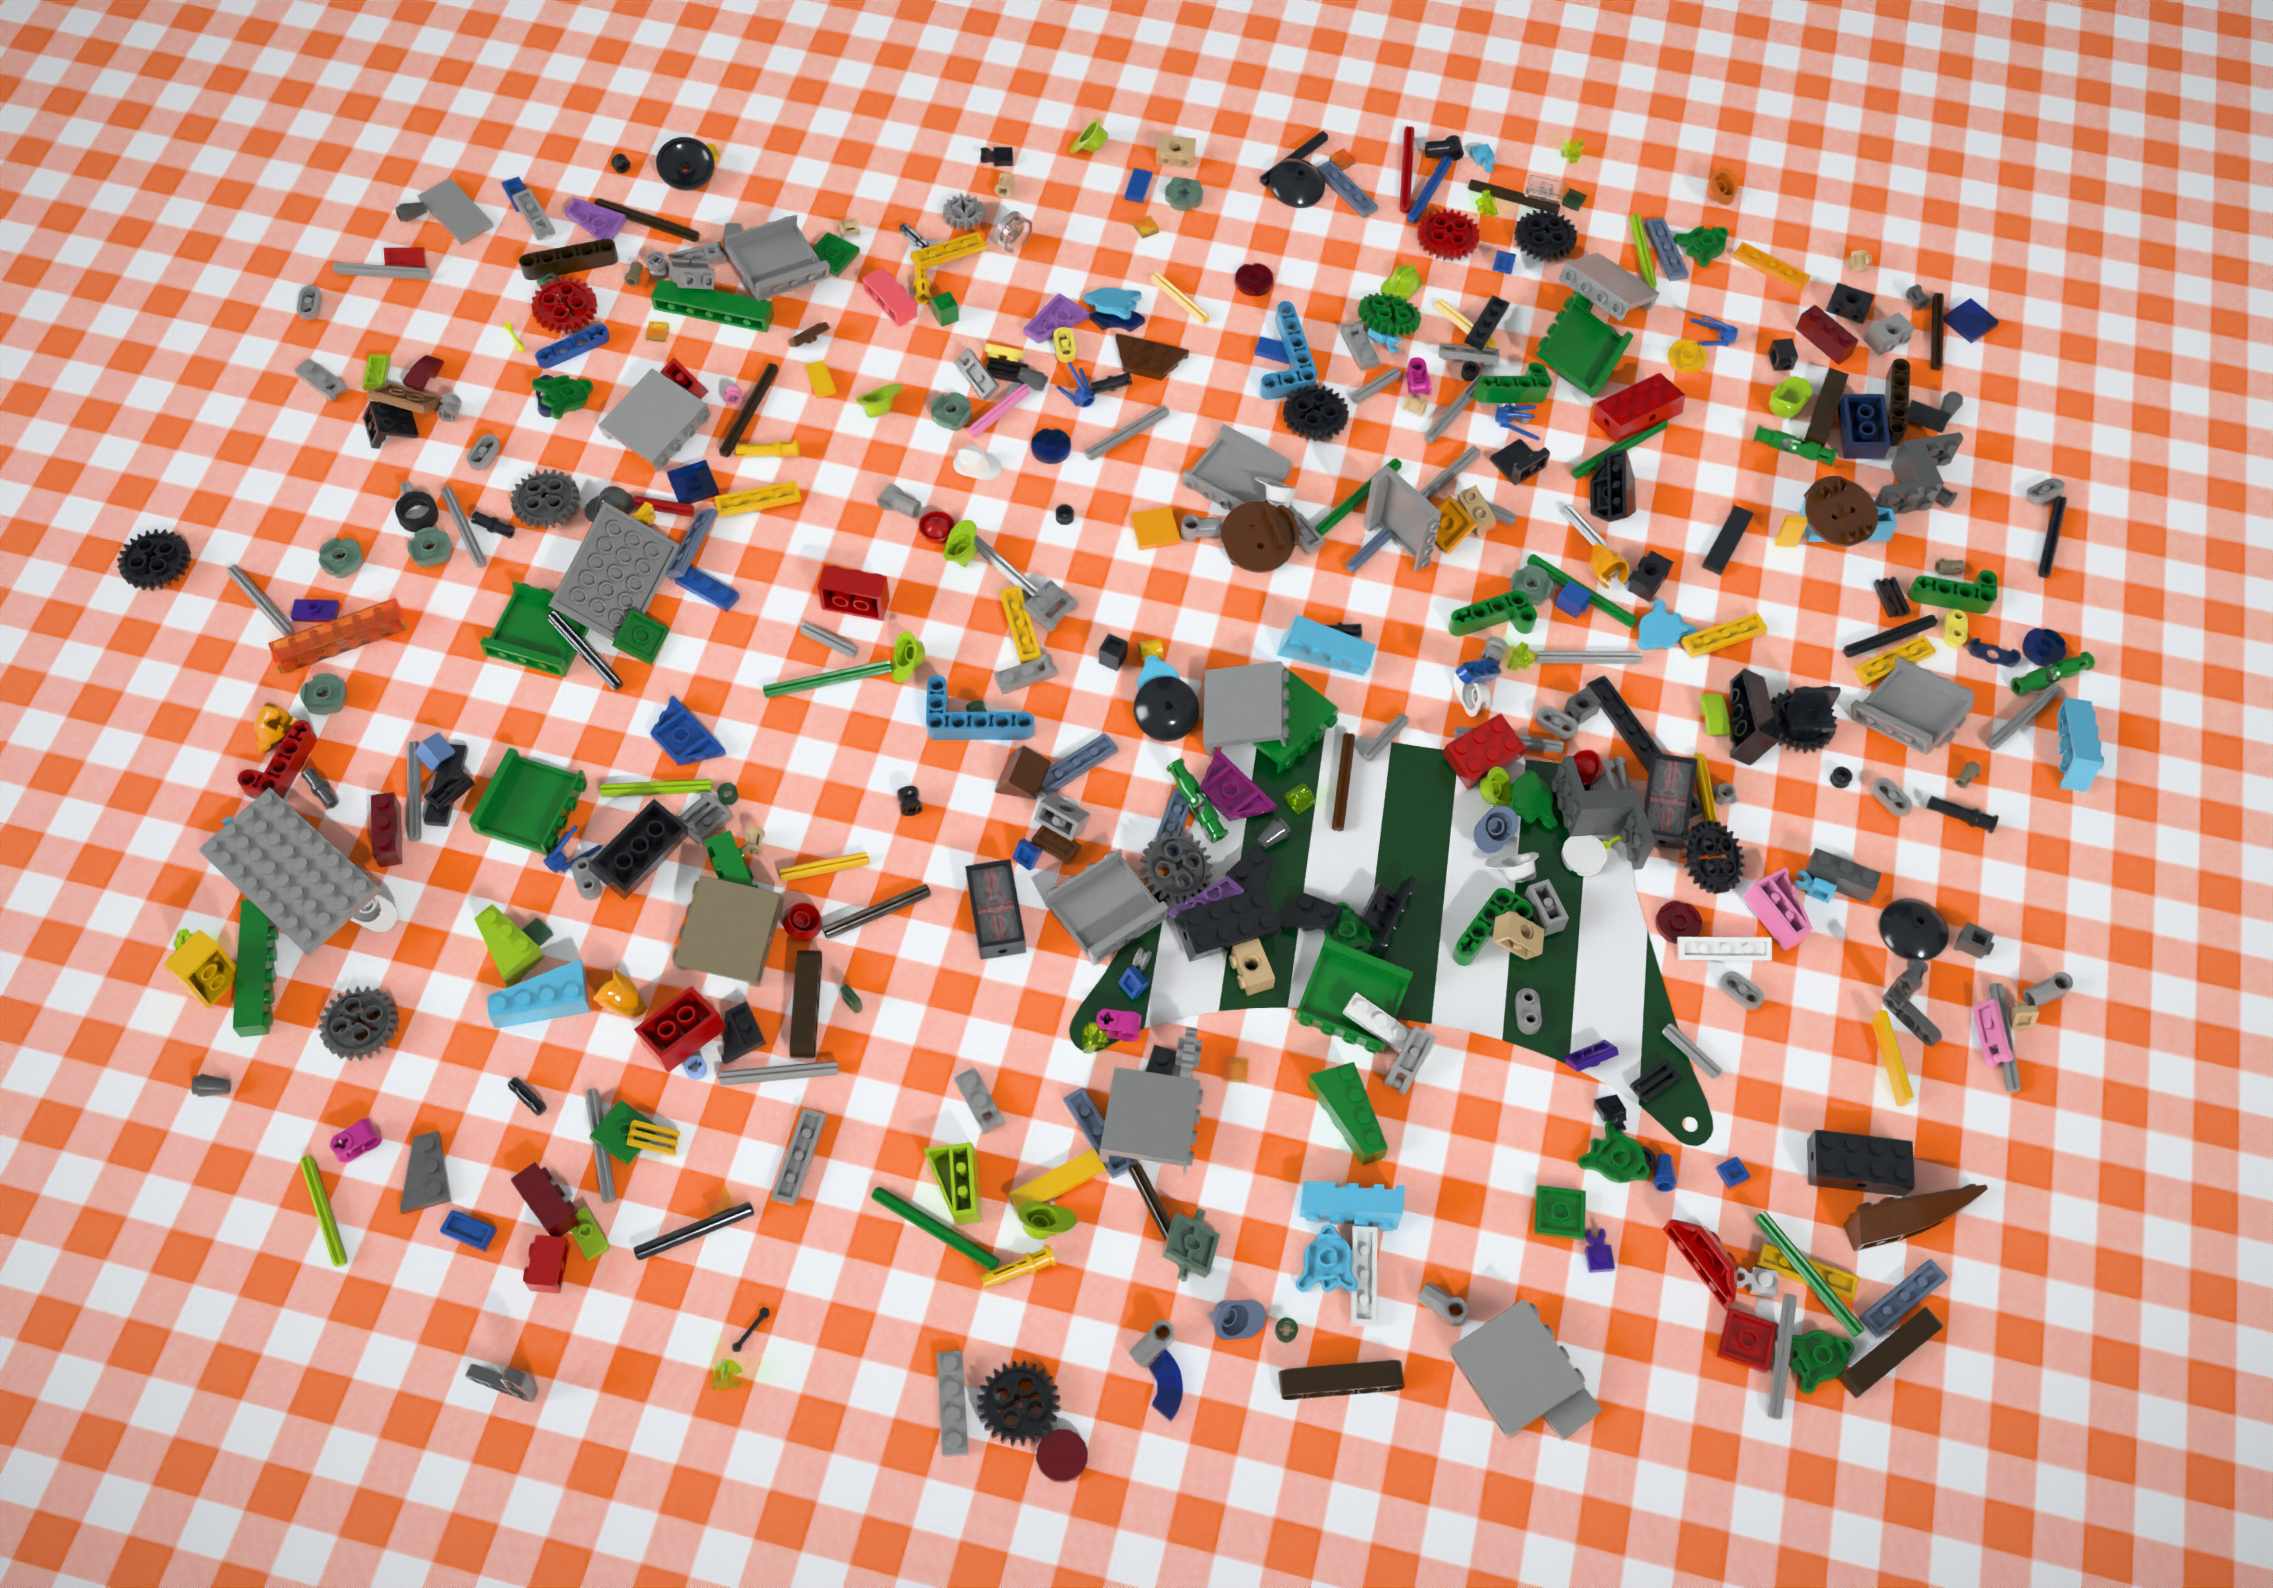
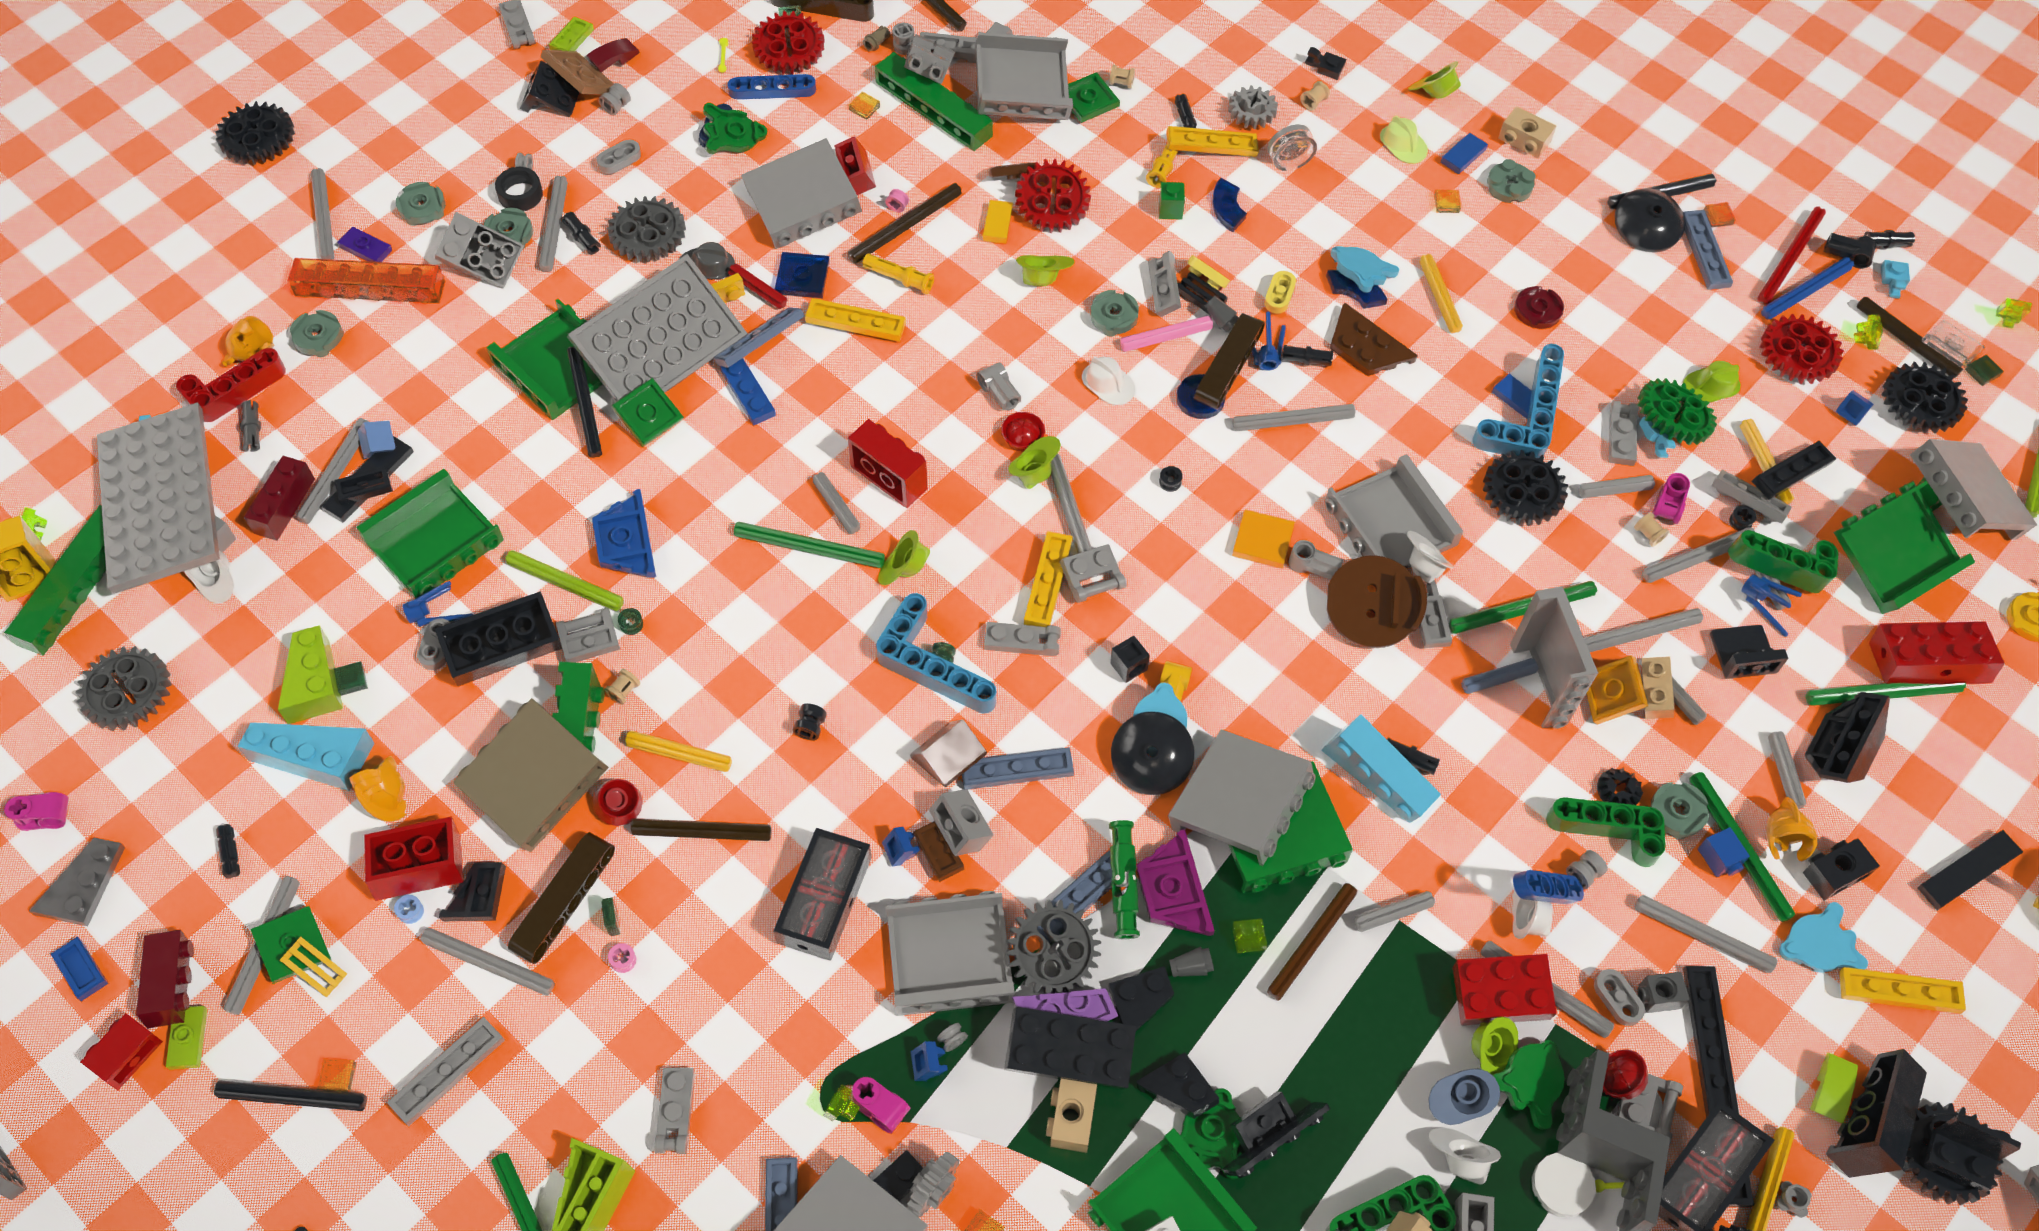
camera: 30 degrees right, 0 degrees up
(419, 573) = (478, 251): none -> light grey slope
(868, 337) = (1074, 197): none -> red gear
(874, 1016) = (626, 950): none -> bright pink bush
(890, 297) = (1122, 165): coral brick -> none
(986, 296) = (1226, 205): none -> clear blue tile
(1056, 314) = (1292, 255): medium lavender wing -> none
(1059, 410) = (1229, 361): none -> dark brown beam
(1089, 193) = (1404, 141): none -> yellowish green piece
(1466, 130) = (1891, 238): none -> black pin
(1477, 588) = (1607, 786): none -> black gear
(1521, 657) = (1617, 893): clear neon green tile -> none

